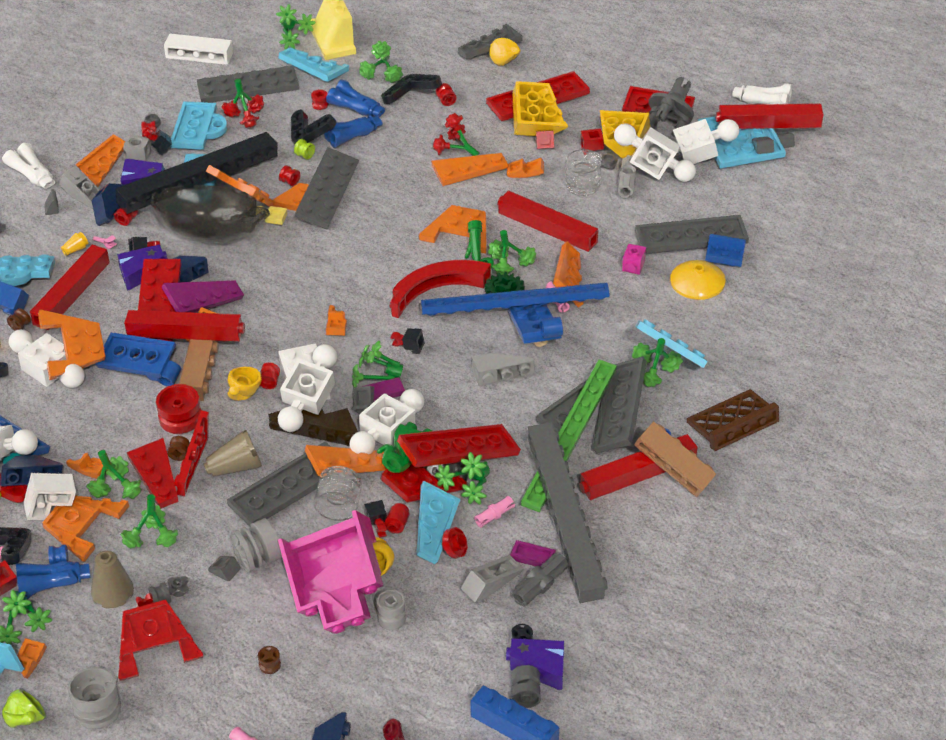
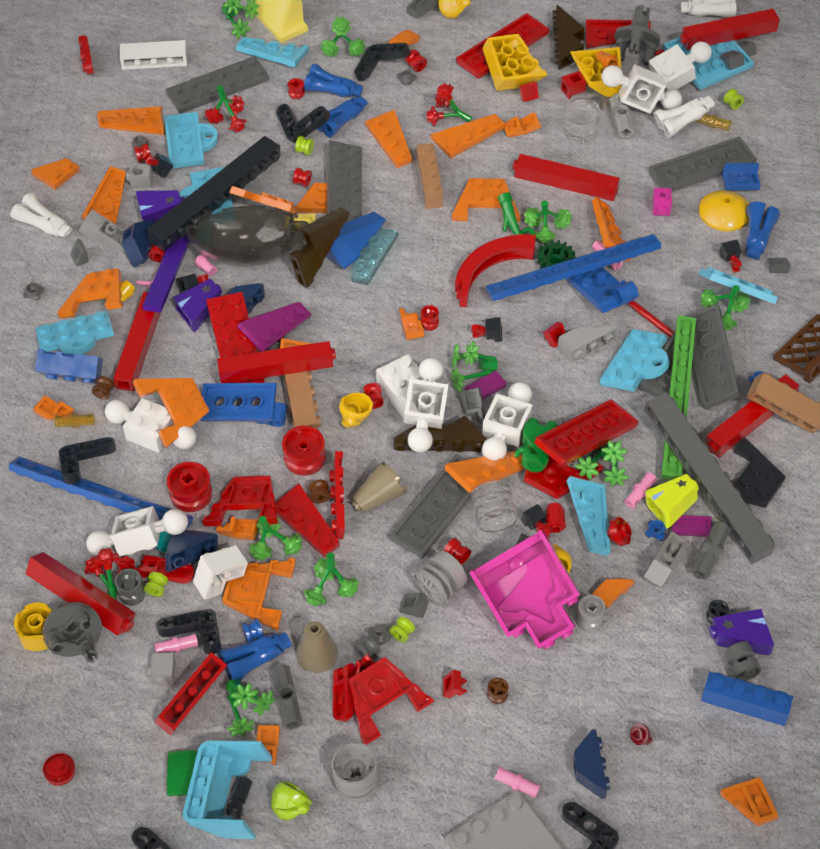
camera: 15 degrees left, 10 degrees up
(54, 233) = (95, 287): none -> orange wing
(57, 418) = (189, 486): none -> red wheel
(63, 133) = (56, 173): none -> orange wing
(63, 620) = (289, 707): none -> dark grey piece
(105, 435) = (245, 494): none -> red wing
(112, 640) = (342, 700): none -> red plate
(118, 234) = (166, 275): none -> dark purple tile
(136, 39) = (85, 55): none -> red plate
(154, 99) = (134, 119): none -> orange wing
(163, 233) = (203, 263): none -> bright pink pin
(201, 585) = (402, 629): none -> lime wheel
(228, 643) = (452, 684): none -> red tile
(272, 226) = (319, 240): none -> dark brown slope
(284, 524) = (459, 552): none -> red wheel
(301, 237) = (353, 238): none -> blue wedge
(330, 250) = (373, 256): none -> clear light blue wing
(355, 318) = (430, 317): none -> red wheel
(391, 157) = (390, 137): none -> orange wing
(412, 195) = (429, 176): none -> medium nougat brick
(425, 593) = (612, 589): none -> orange slope
(431, 108) = (406, 77): none -> flat silver plate
(446, 74) = (406, 37): none -> orange slope
(470, 352) = (552, 333): none -> red tile
(492, 546) = (656, 525): none -> blue plate
(522, 524) = (672, 499): none -> neon yellow slope
(544, 394) = (636, 361): none -> medium azure plate
(574, 357) = (651, 318): none -> red piece
(607, 97) = (568, 37): none -> dark brown slope
(620, 528) = (760, 478): none -> black wing
(627, 118) = (606, 59): none -> orange cone
(680, 188) = (675, 119): none -> white piece
(684, 317) = (731, 252): none -> black piece
(717, 308) = (758, 238): none -> blue piece
(720, 197) = (714, 122): none -> clear yellow pin
(730, 338) = (779, 265): none -> dark grey slope
(749, 181) = (733, 99): none -> lime wheel

